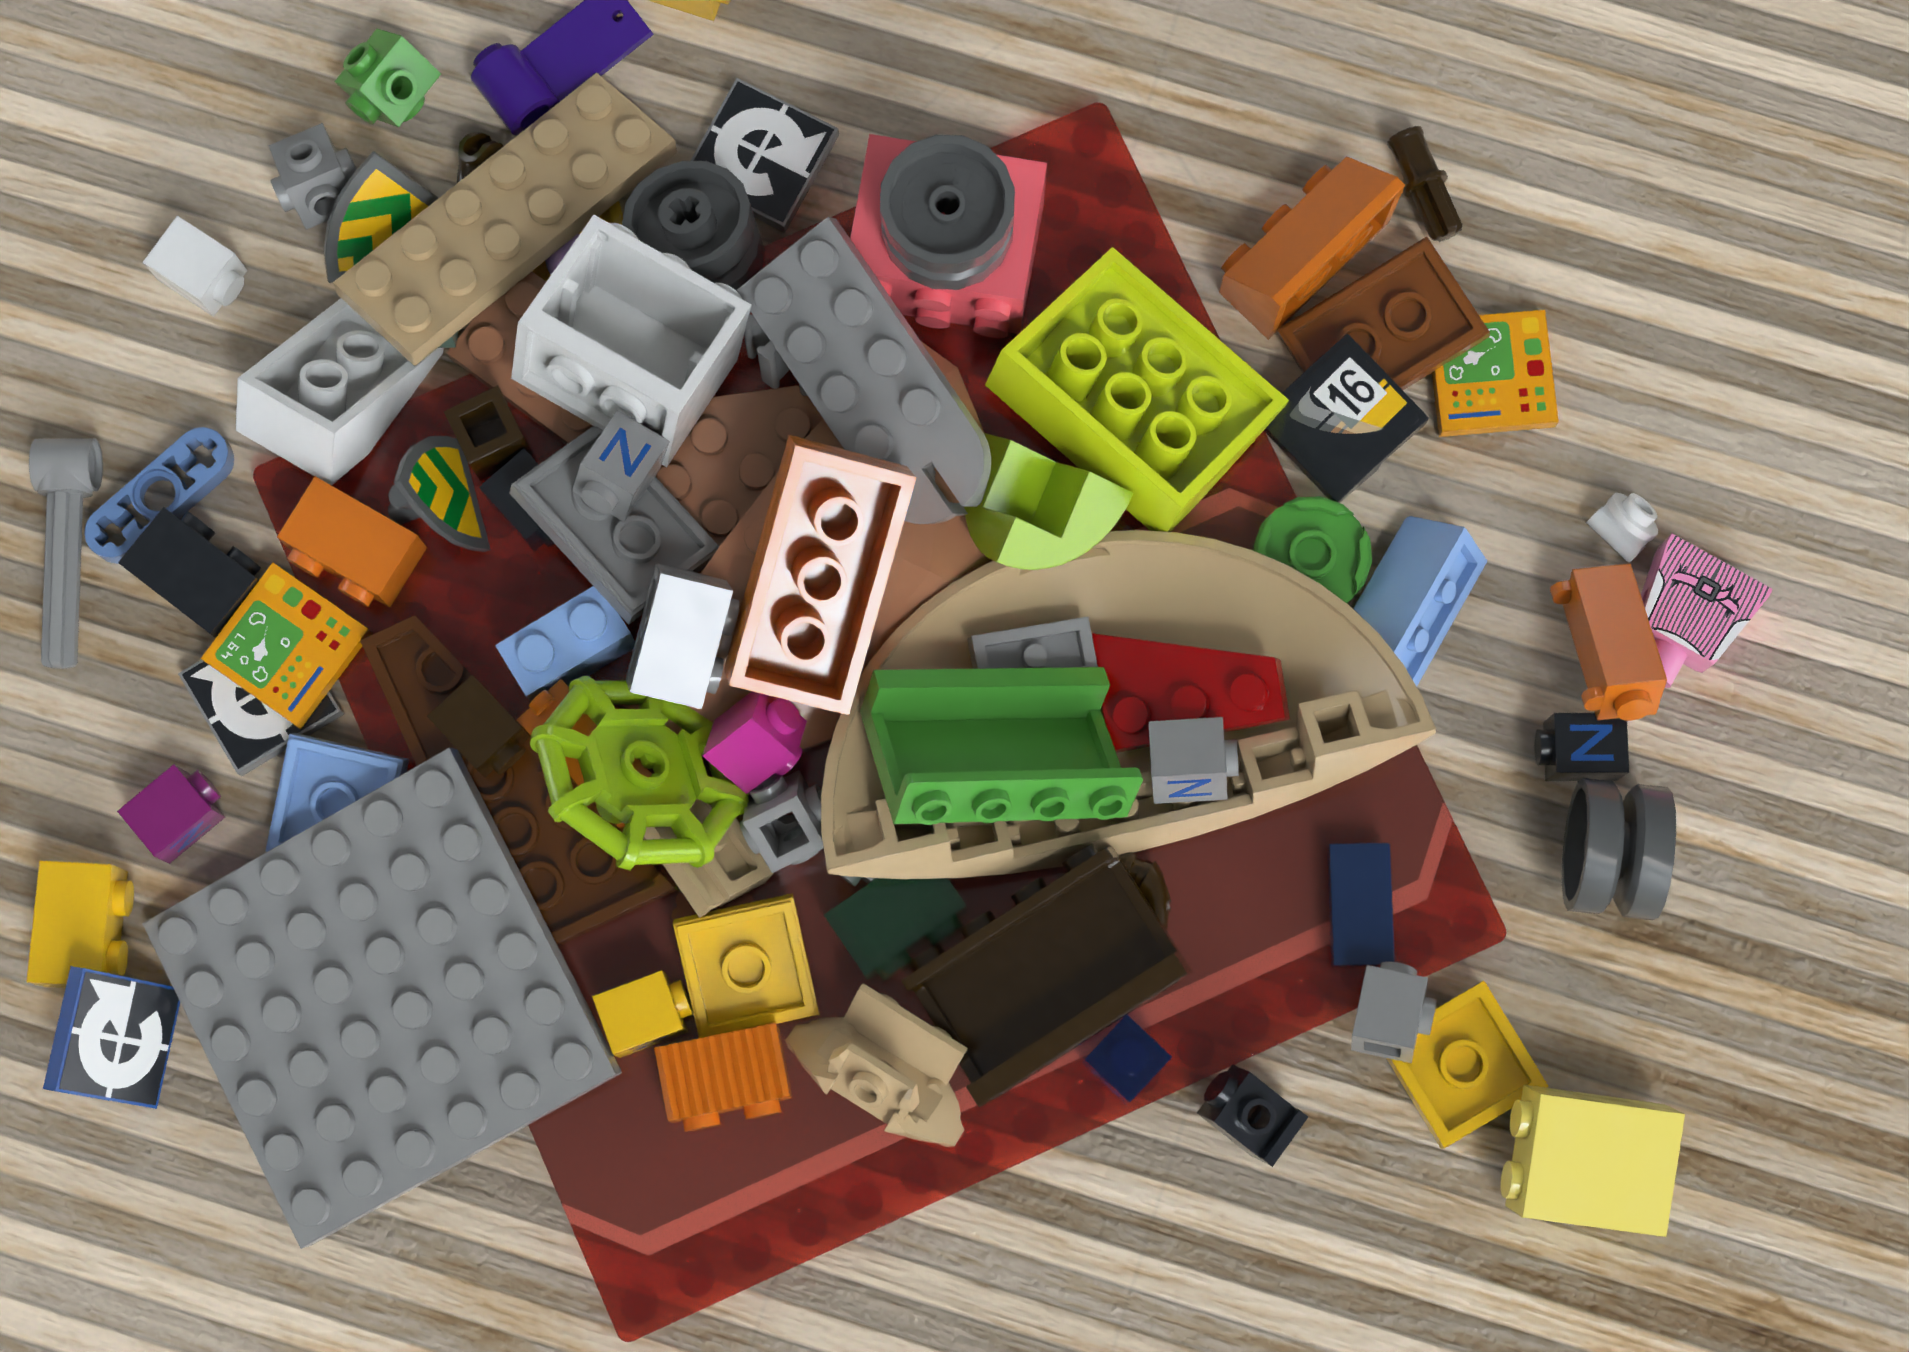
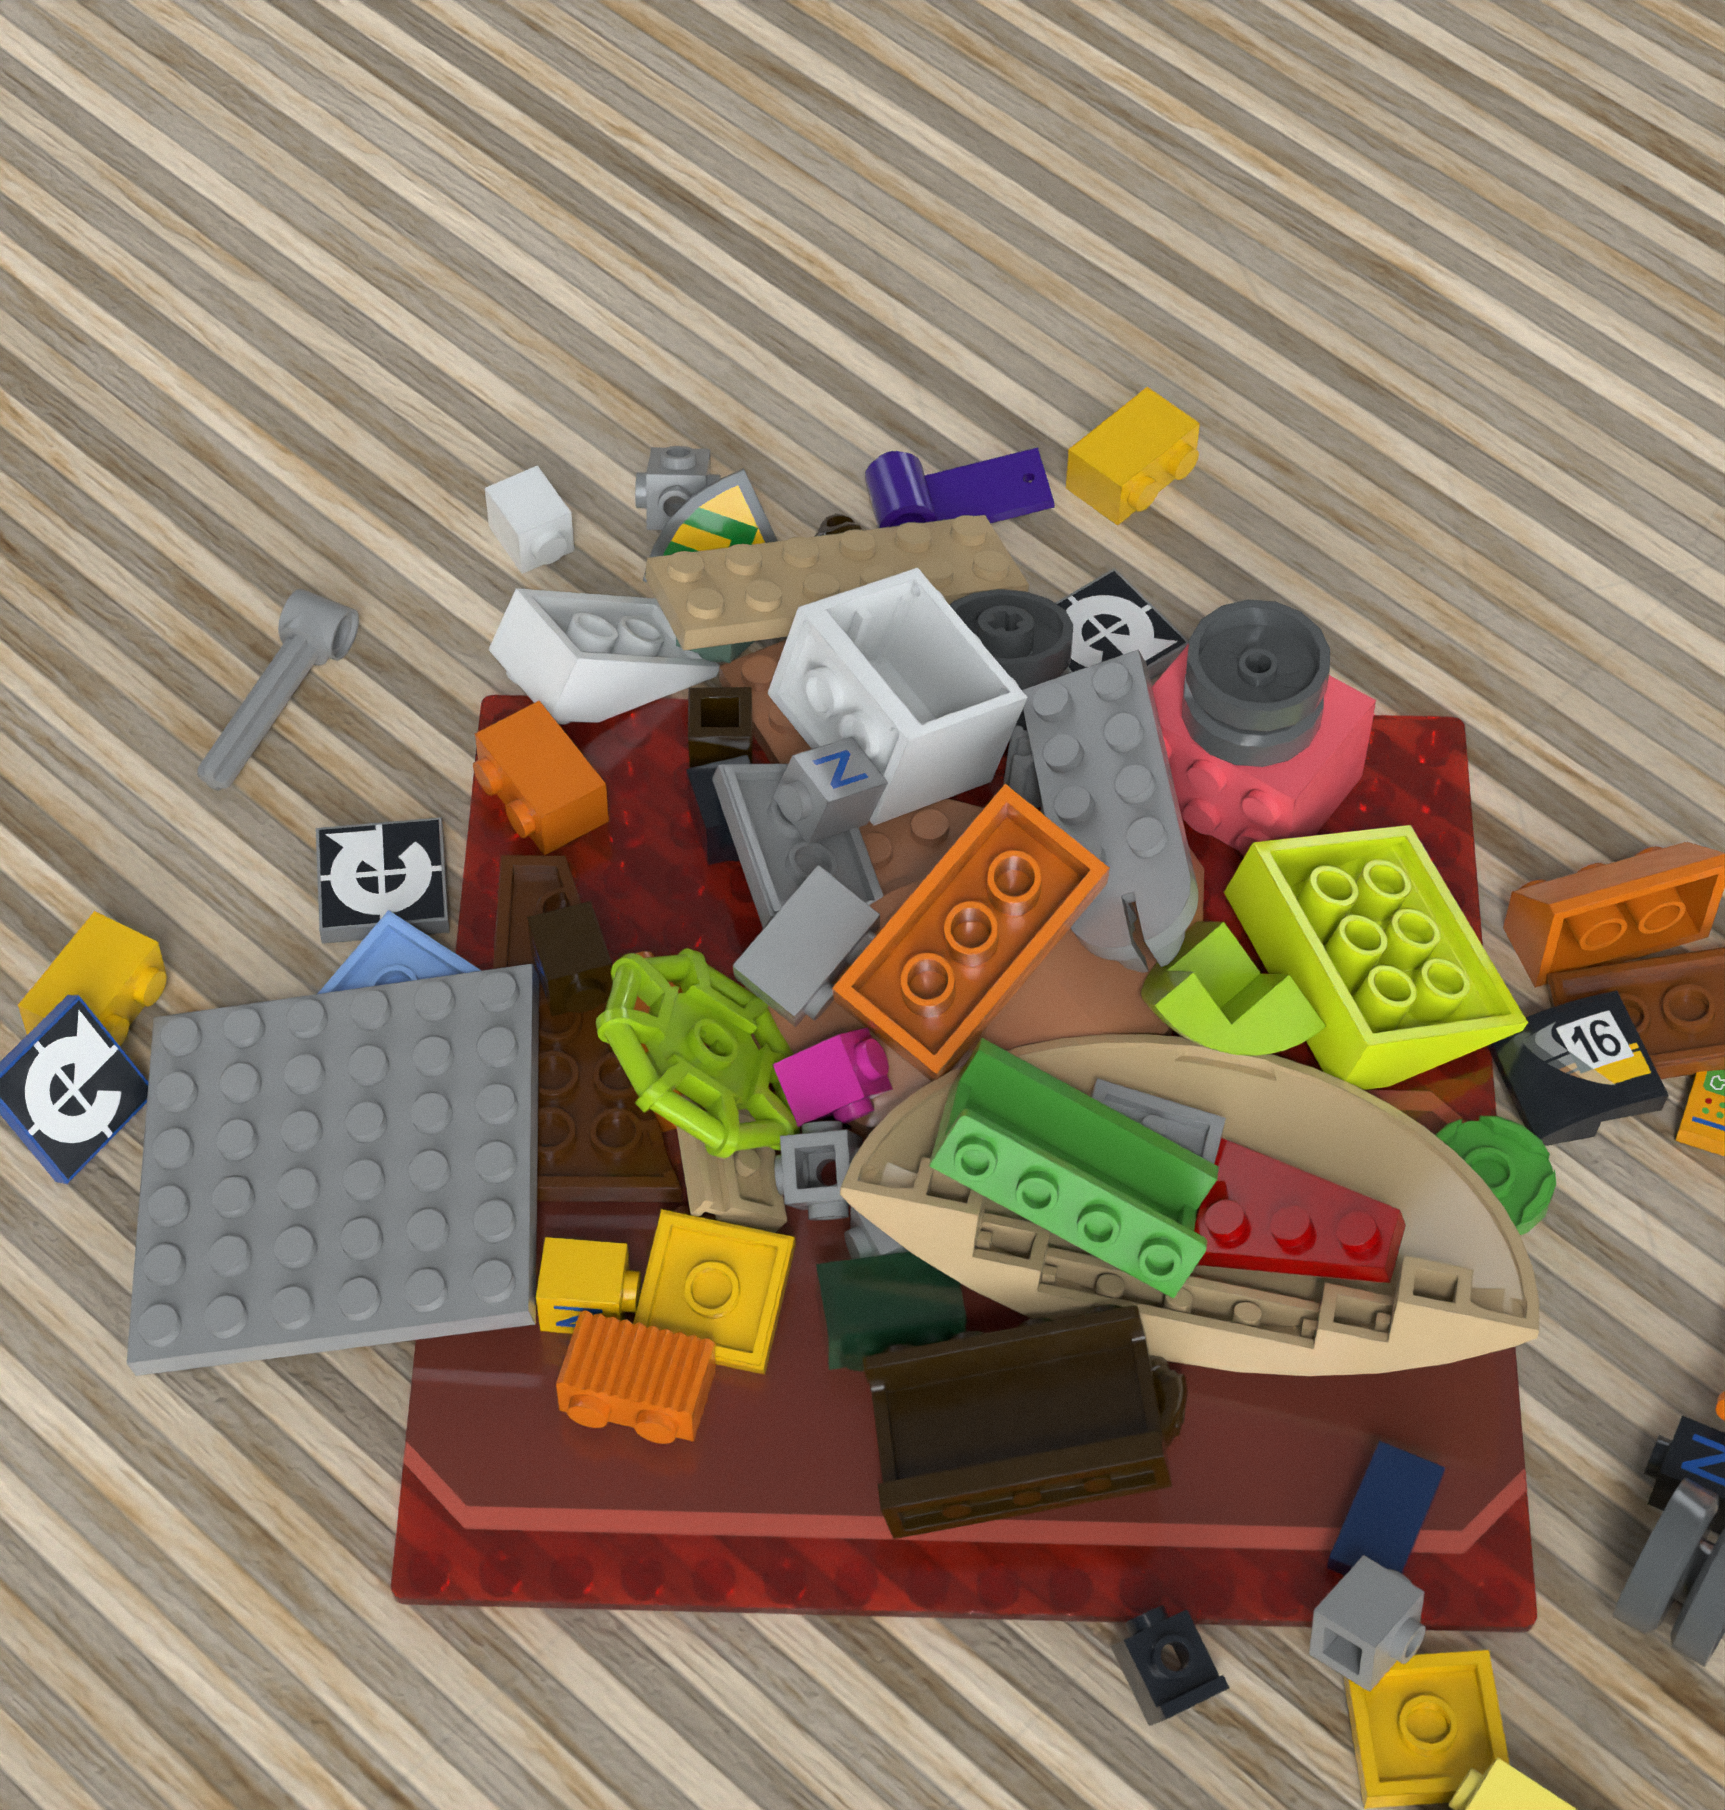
camera: 25 degrees right, 25 degrees down
(173, 812) = (241, 935): magenta brick -> none
(185, 498) = (374, 706): medium blue beam -> none
(191, 572) = (381, 754): black brick -> none
(286, 645) = (428, 841): tile -> none
(386, 79) = (787, 442): bright green brick -> none
(439, 488) = (649, 759): shield -> none
(566, 643) = (707, 921): light blue brick -> none
(886, 1066) = (812, 1442): tan piece -> none
(1126, 1060) = (1059, 1544): clear blue brick -> none
(1191, 760) = (1265, 1273): light grey brick -> none
(1420, 589) = (1595, 1258): light blue panel -> none

